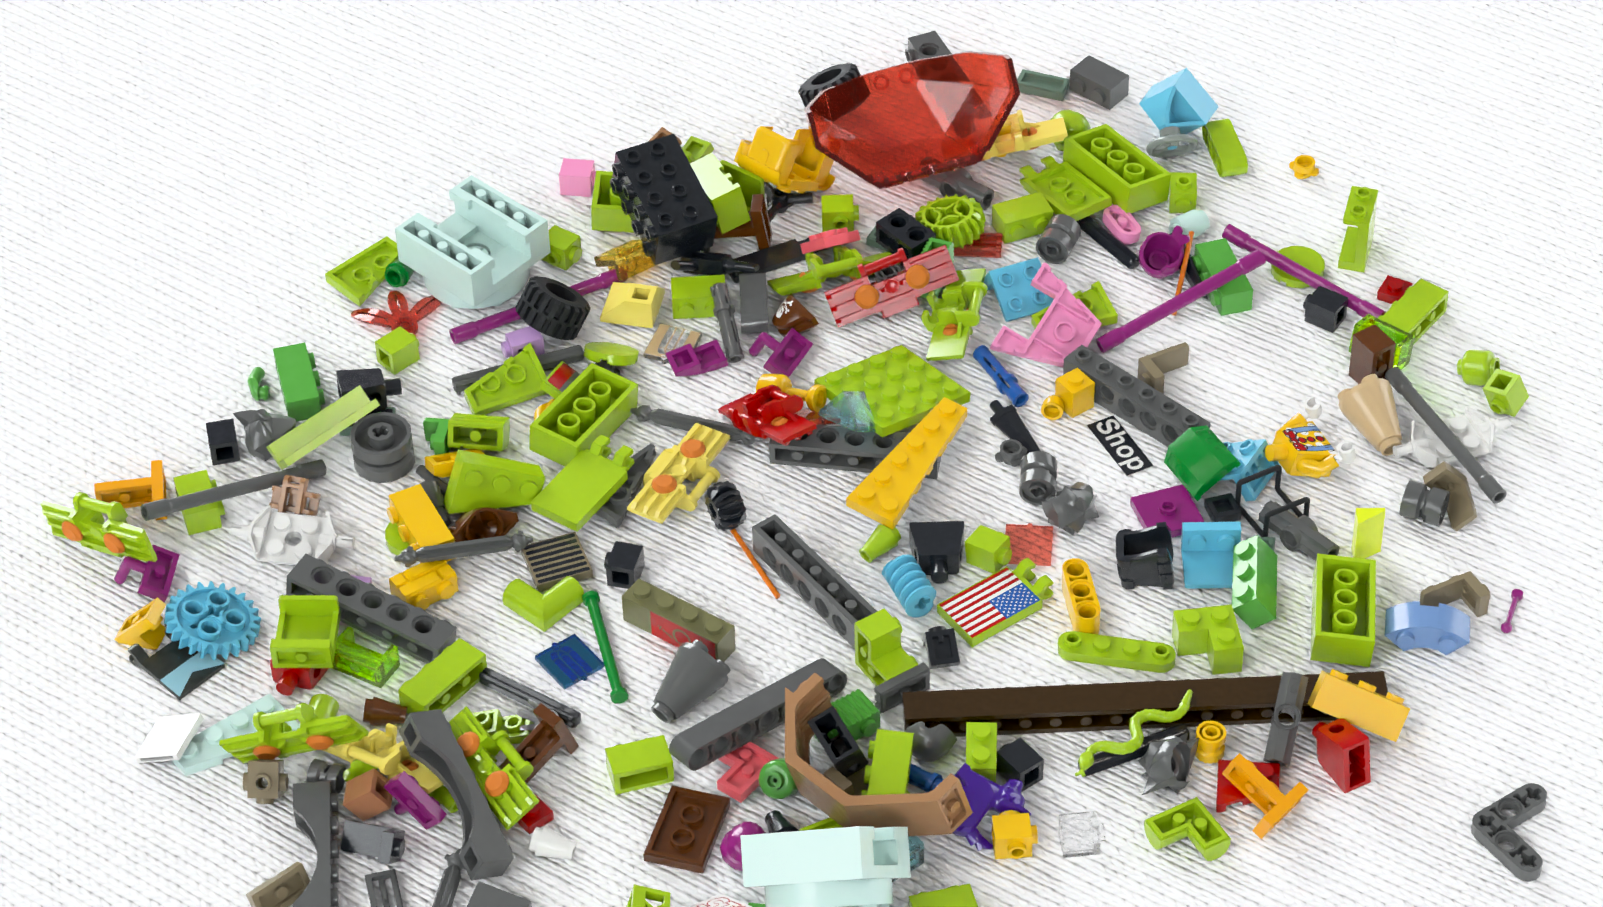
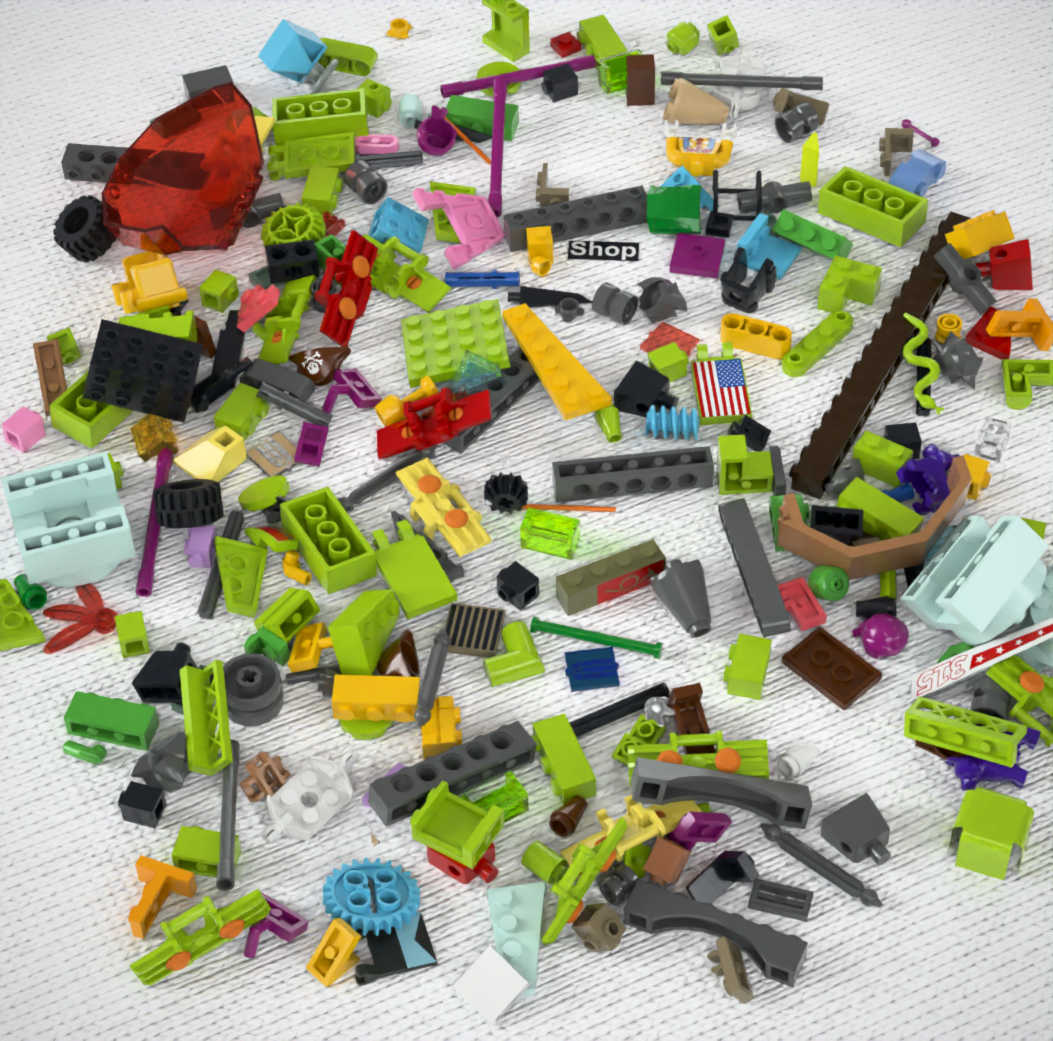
camera: 60 degrees left, 5 degrees up
(702, 559) = (550, 533): none -> clear neon green panel

